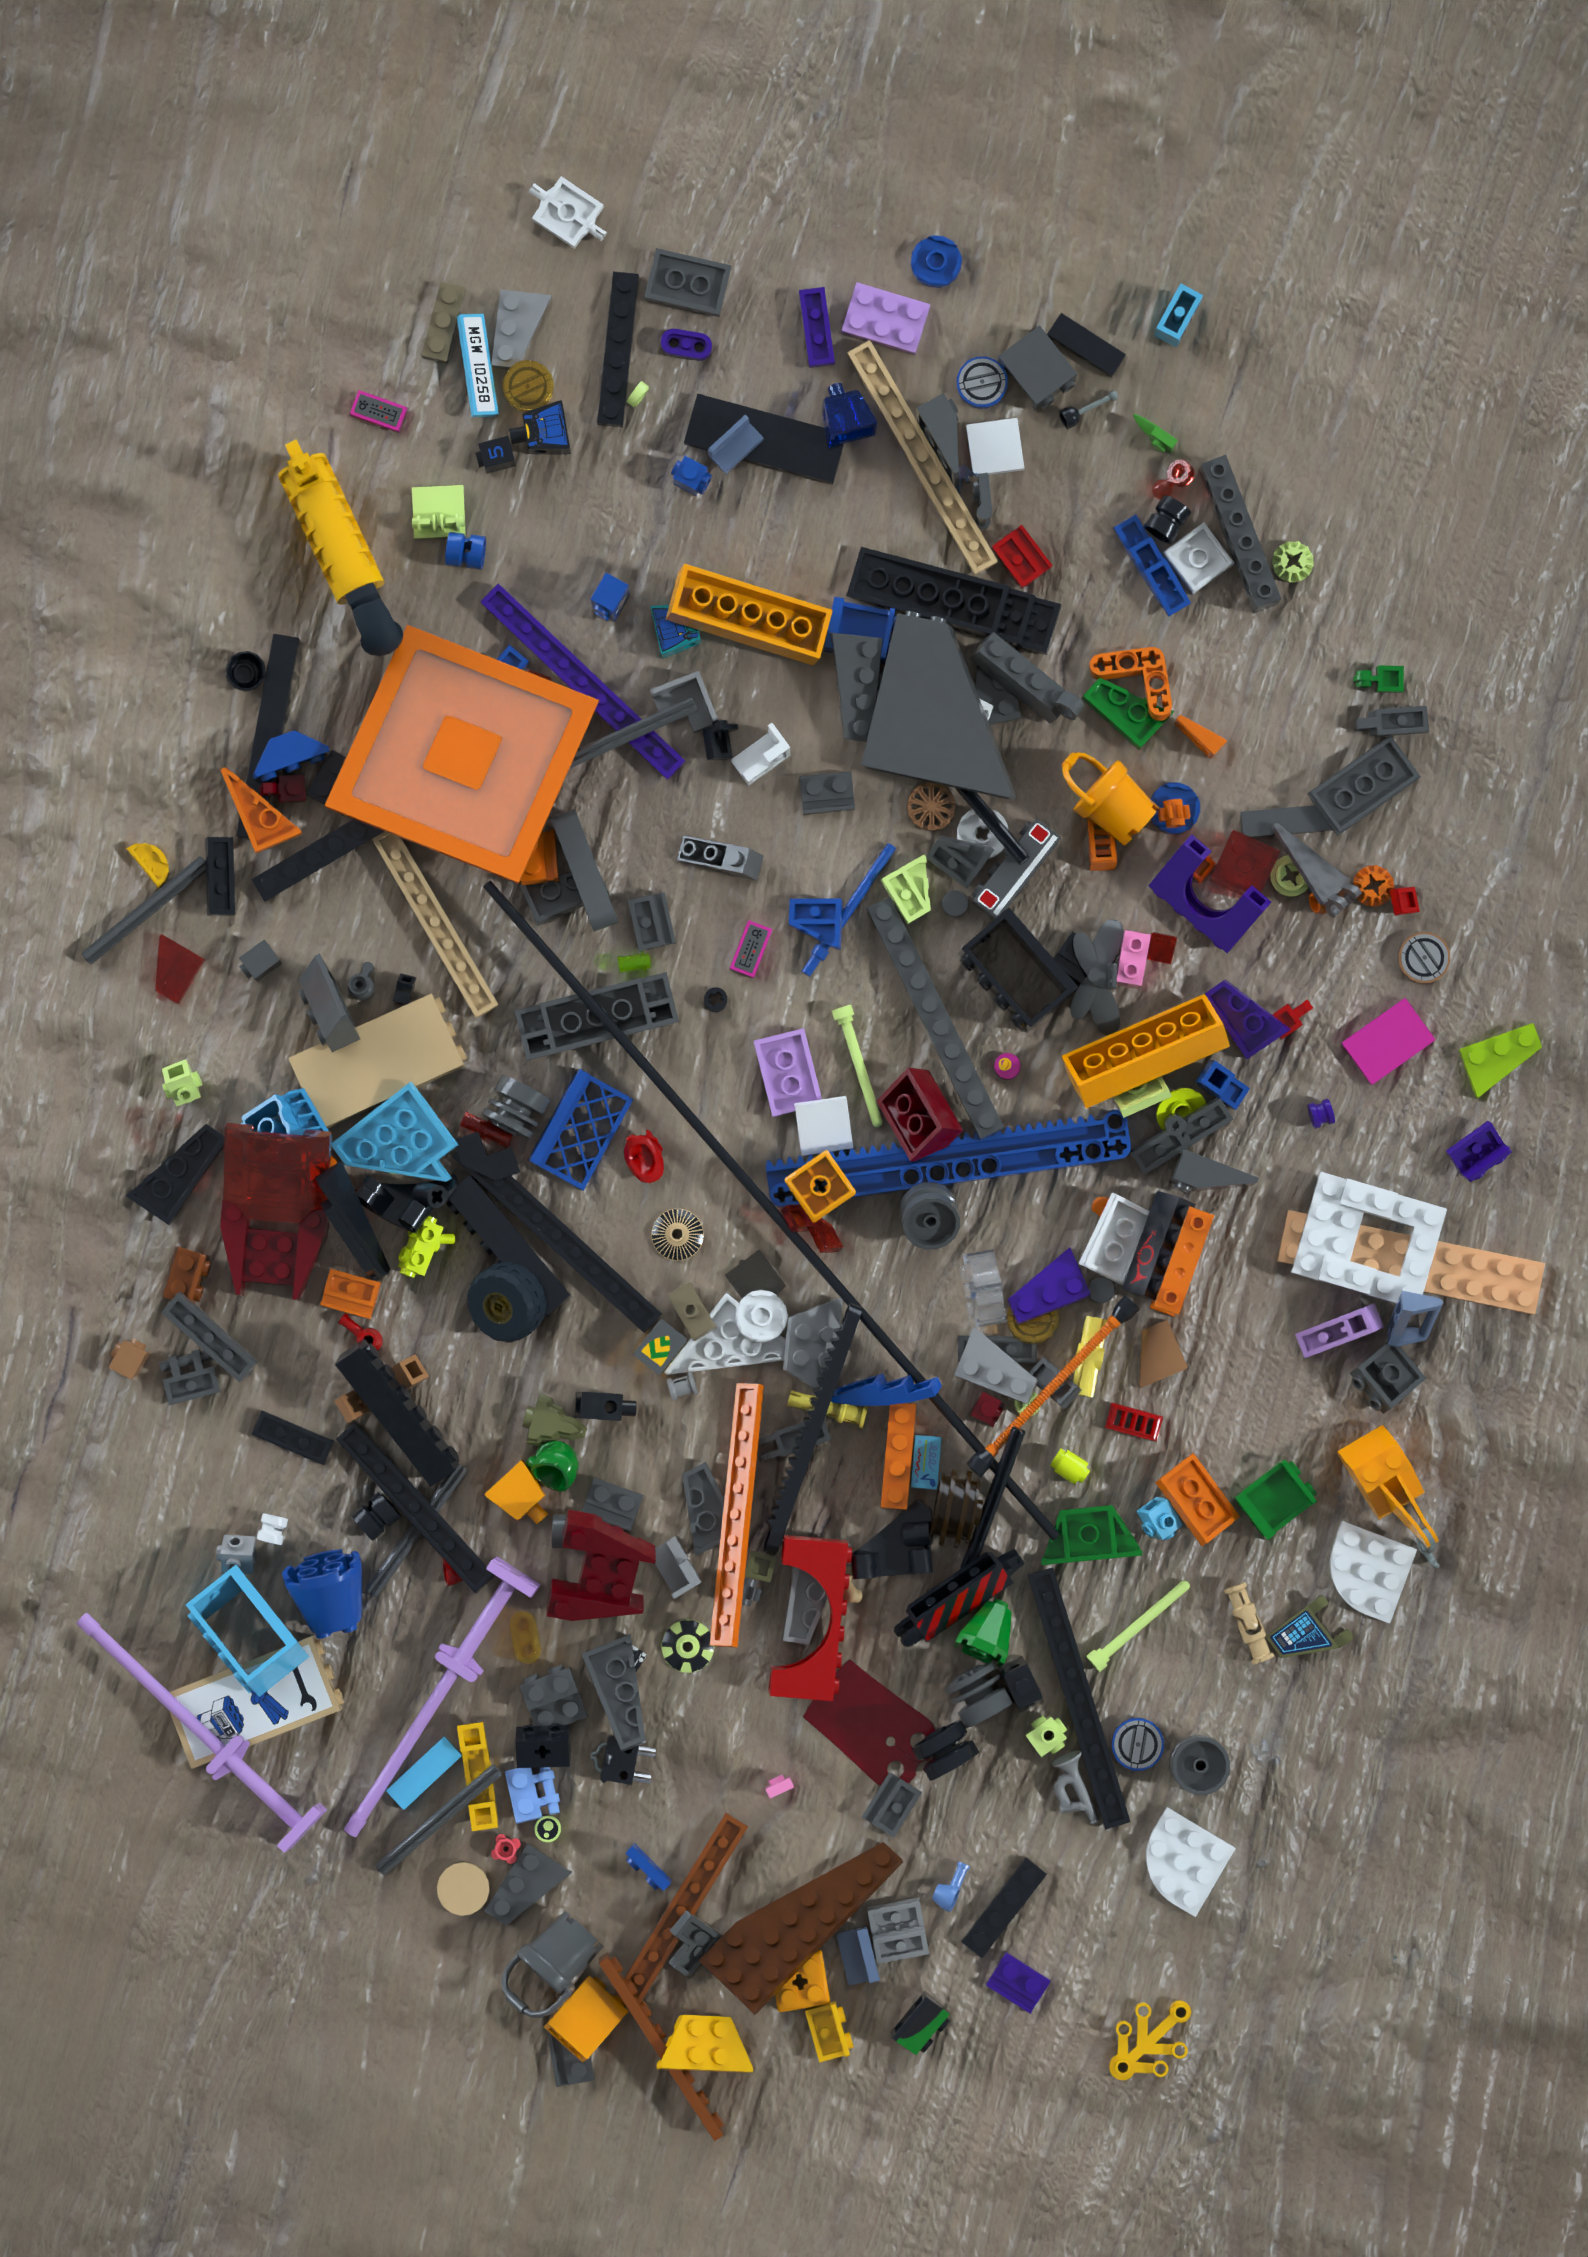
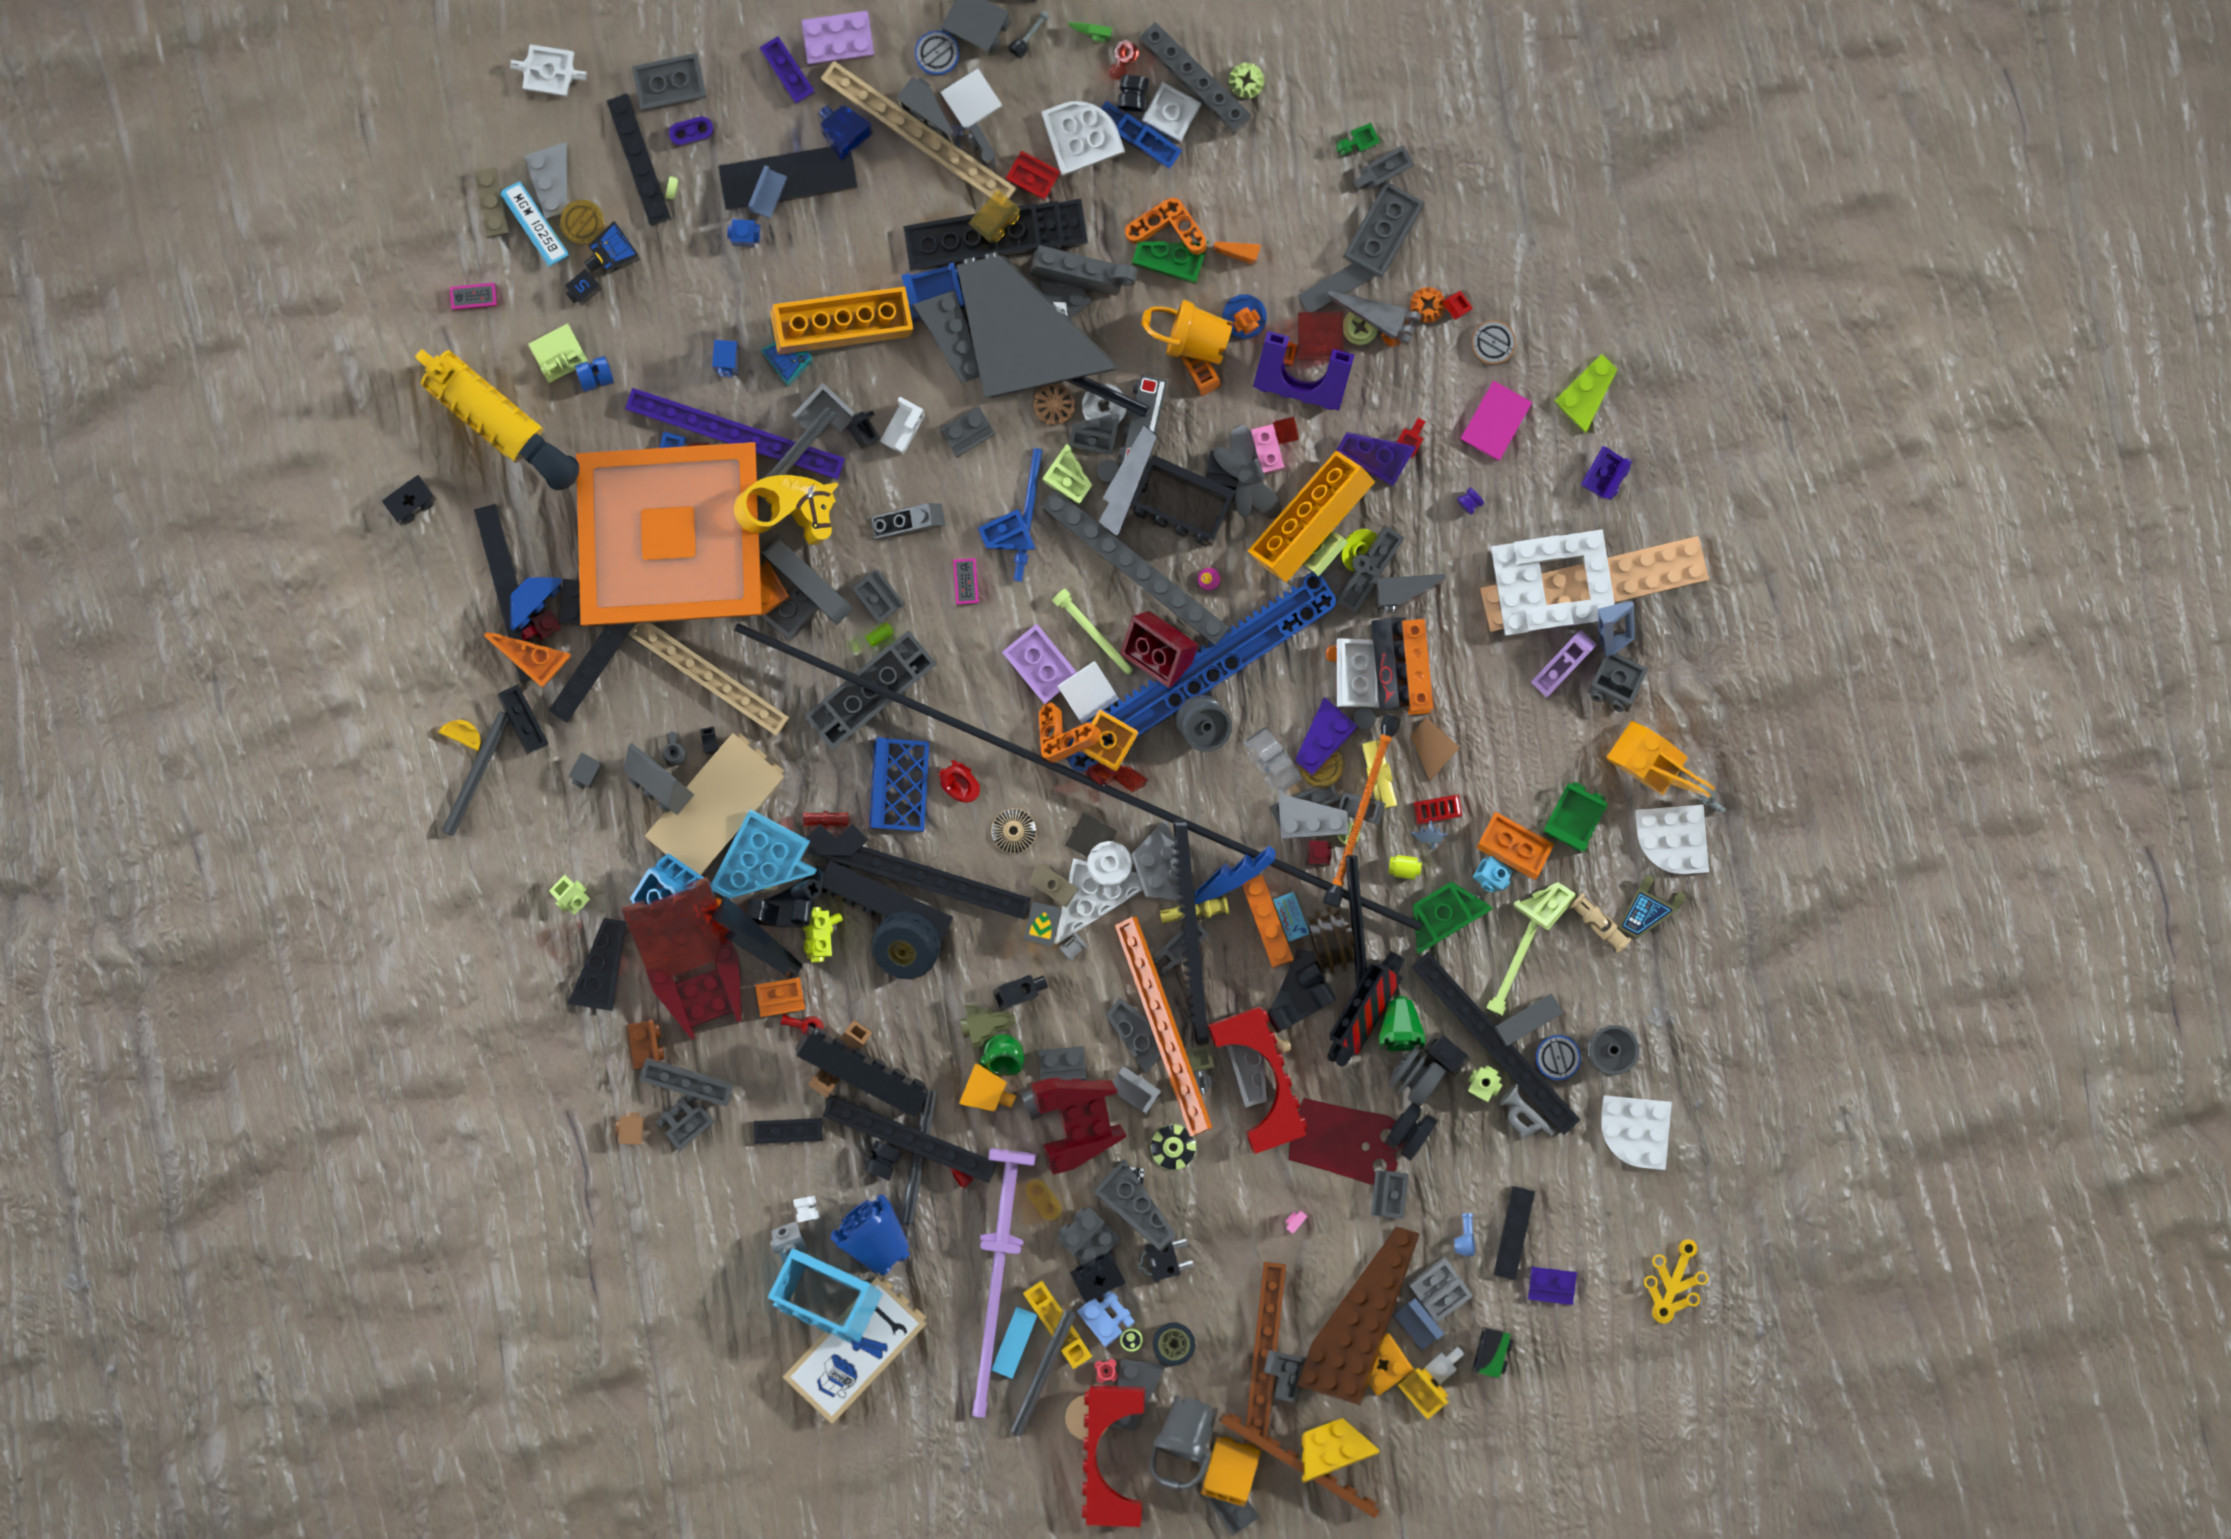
camera: 25 degrees left, 0 degrees up
(175, 969) = (521, 808): clear red wing -> none
(198, 587) = (397, 501): none -> black brick
(227, 1757) = (856, 1401): lavender piece -> none
(245, 671) = (466, 549): black hair -> none
(437, 1989) = (1103, 1503): none -> red arch
(516, 1106) = (841, 790): dark grey wheel -> none
(588, 1868) = (1162, 1340): none -> wheel
(616, 777) = (791, 495): none -> yellow animal
(639, 1860) = (1232, 1336): blue plate -> none
(713, 991) = (961, 639): black bush -> none
(762, 1166) = (1055, 747): none -> orange beam
(861, 2012) = (1442, 1366): none -> white plate
(961, 581) = (995, 217): none -> clear yellow brick
(968, 922) = (1126, 481): none -> wedge
(1092, 538) = (1081, 135): none -> white plate
(1112, 1445) = (1430, 835): none -> sand blue piece
(1125, 1690) = (1528, 1020): none -> dark grey tile
(1201, 1577) = (1546, 904): none -> yellowish green wing
(1221, 1082) = (1381, 513): blue brick -> none

